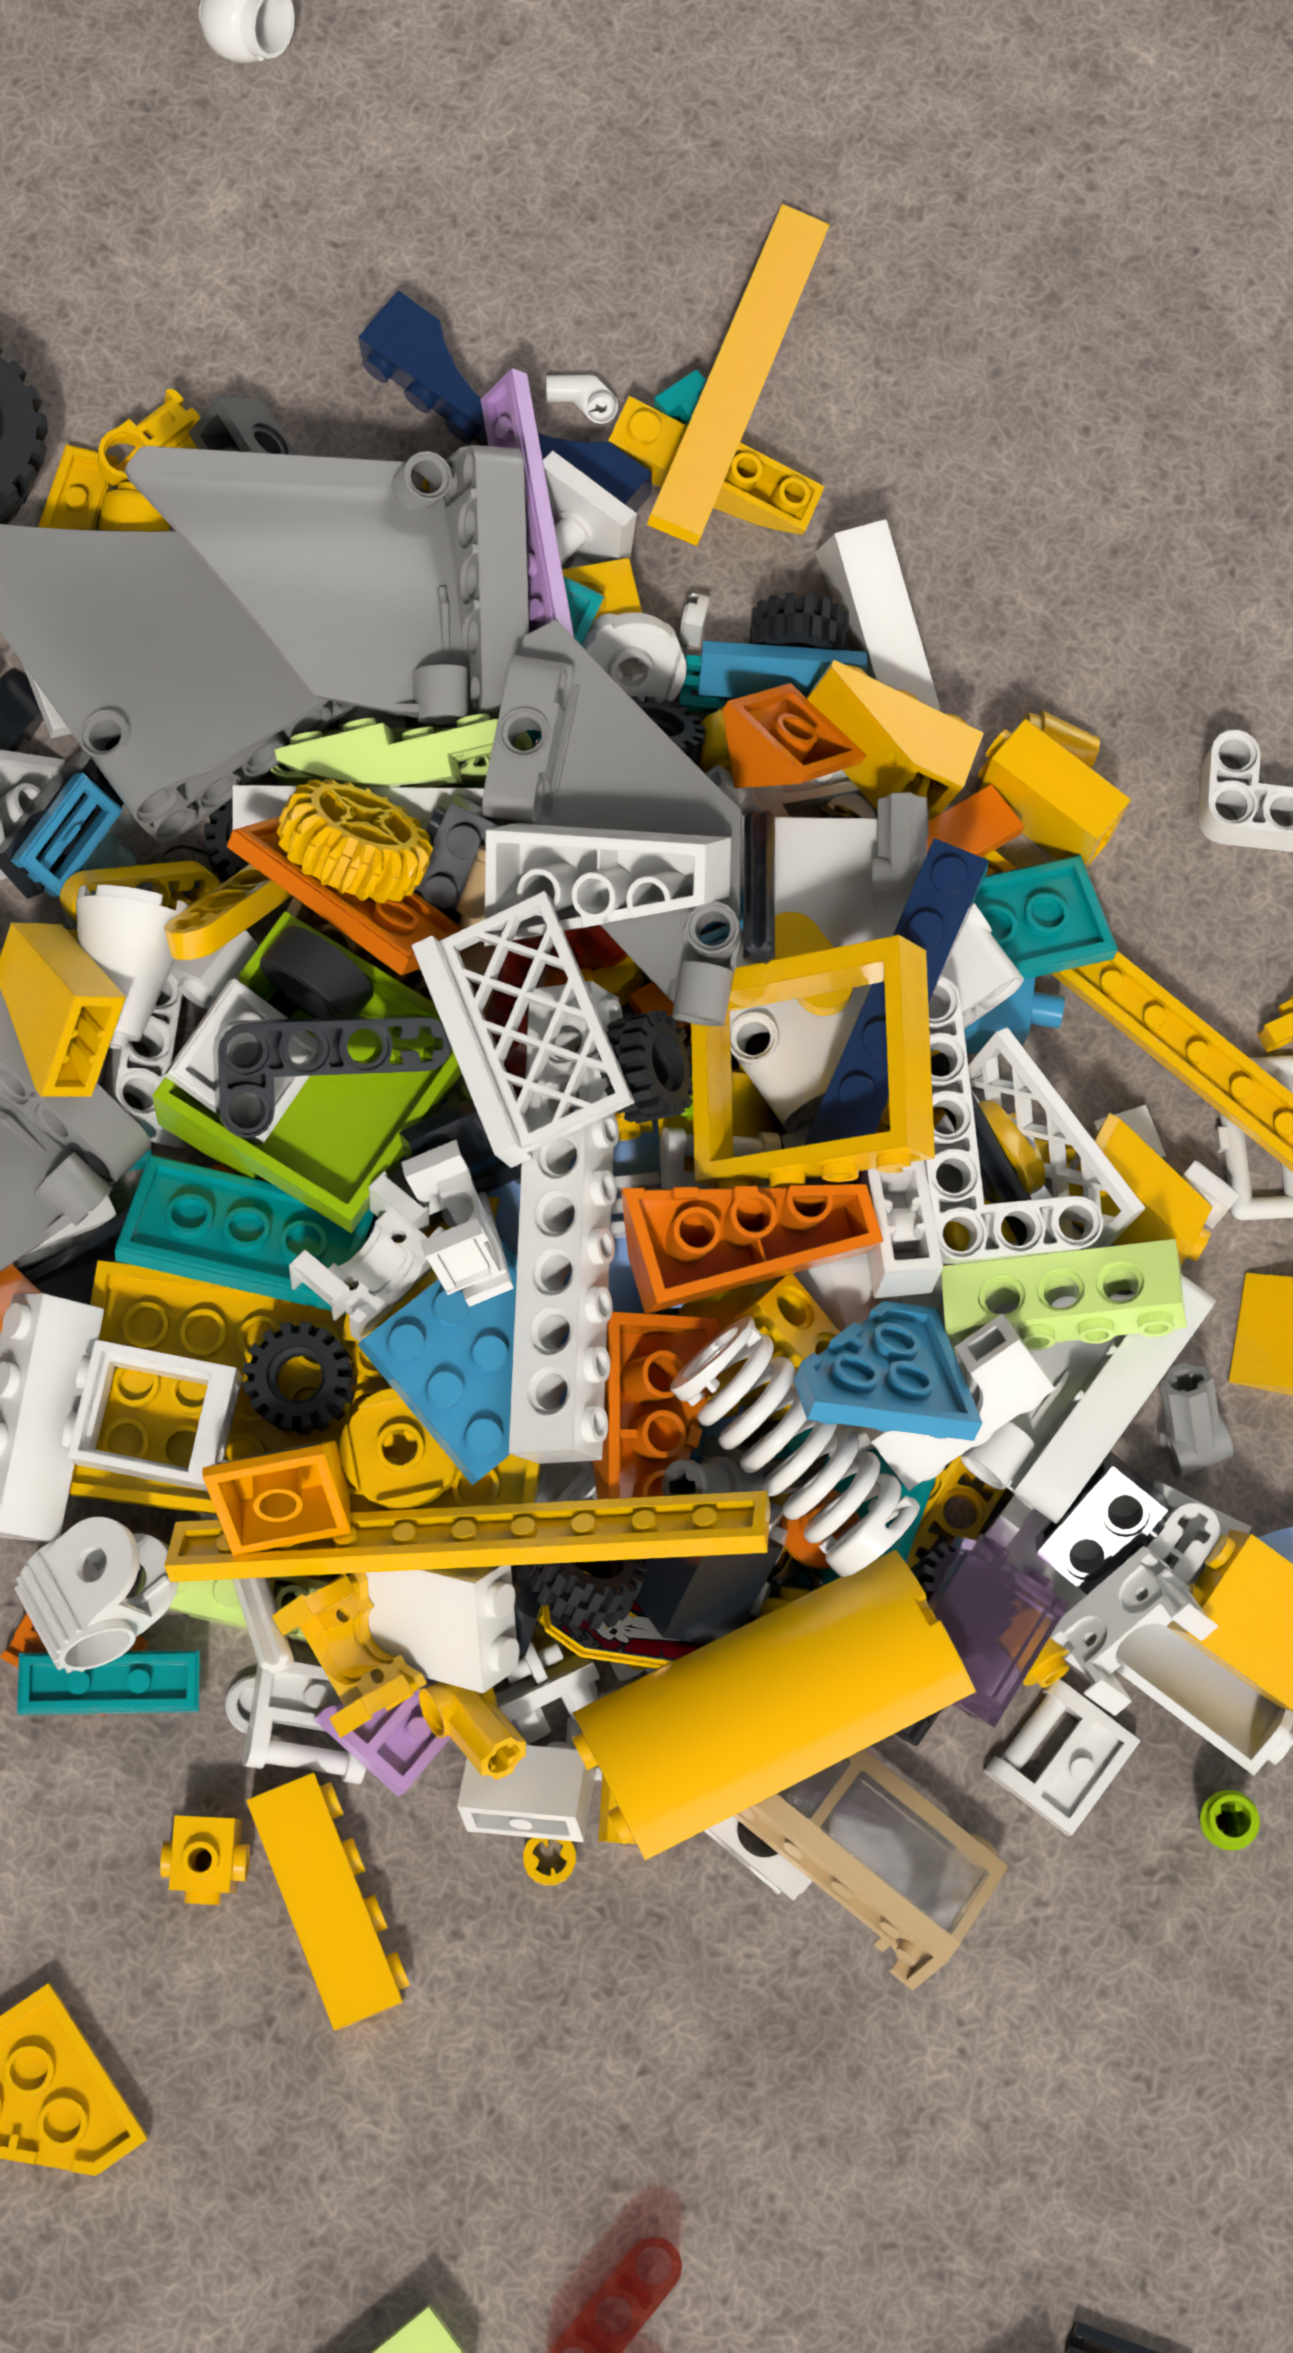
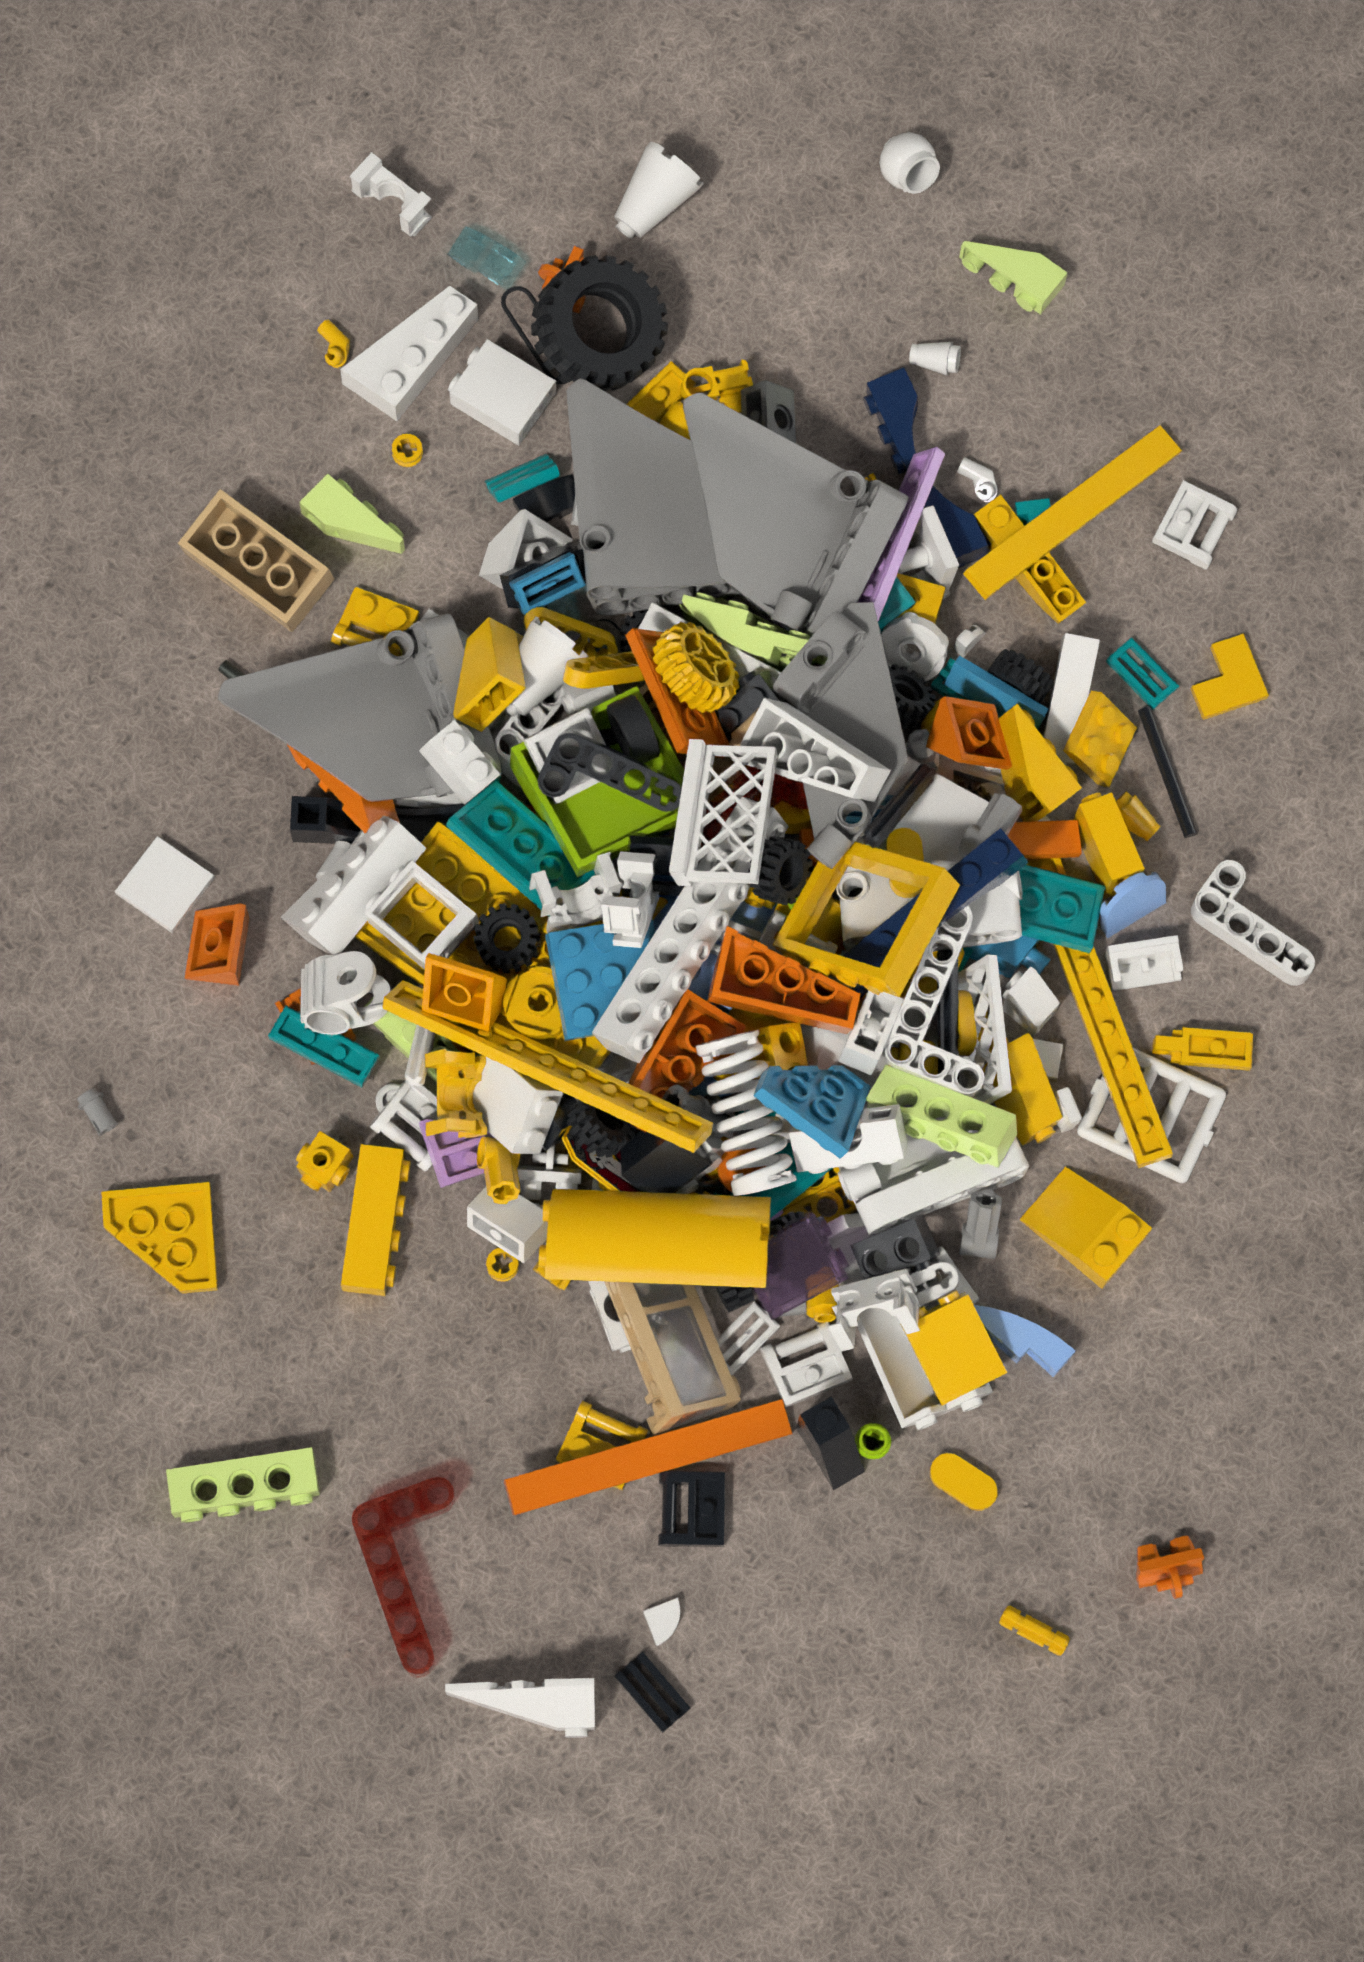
camera: 35 degrees right, 0 degrees up
(86, 1155) = (460, 761): none -> white brick
(429, 260) = (938, 357): none -> white cone
(501, 83) = (1035, 275): none -> yellowish green slope
(848, 2065) = (580, 1444): none -> yellow plate
(886, 313) = (1184, 519): none -> white plate
(920, 2033) = (647, 1457): none -> orange tile
(927, 1771) = (763, 1318): none -> white tile
(946, 563) = (1161, 694): none -> teal tile
(954, 658) = (1100, 739): none -> yellow plate
(1044, 2056) = (705, 1509): none -> black plate
(1062, 660) = (1167, 772): none -> black bar
(1076, 1065) = (1029, 1000): none -> white slope
(1079, 2255) = (663, 1620): none -> white tile
(1084, 493) = (1239, 680): none -> yellow tile
(1131, 851) = (1133, 900): none -> light blue tile
(1167, 1853) = (830, 1442): none -> black slope
(1188, 933) = (1144, 963): none -> white hinge

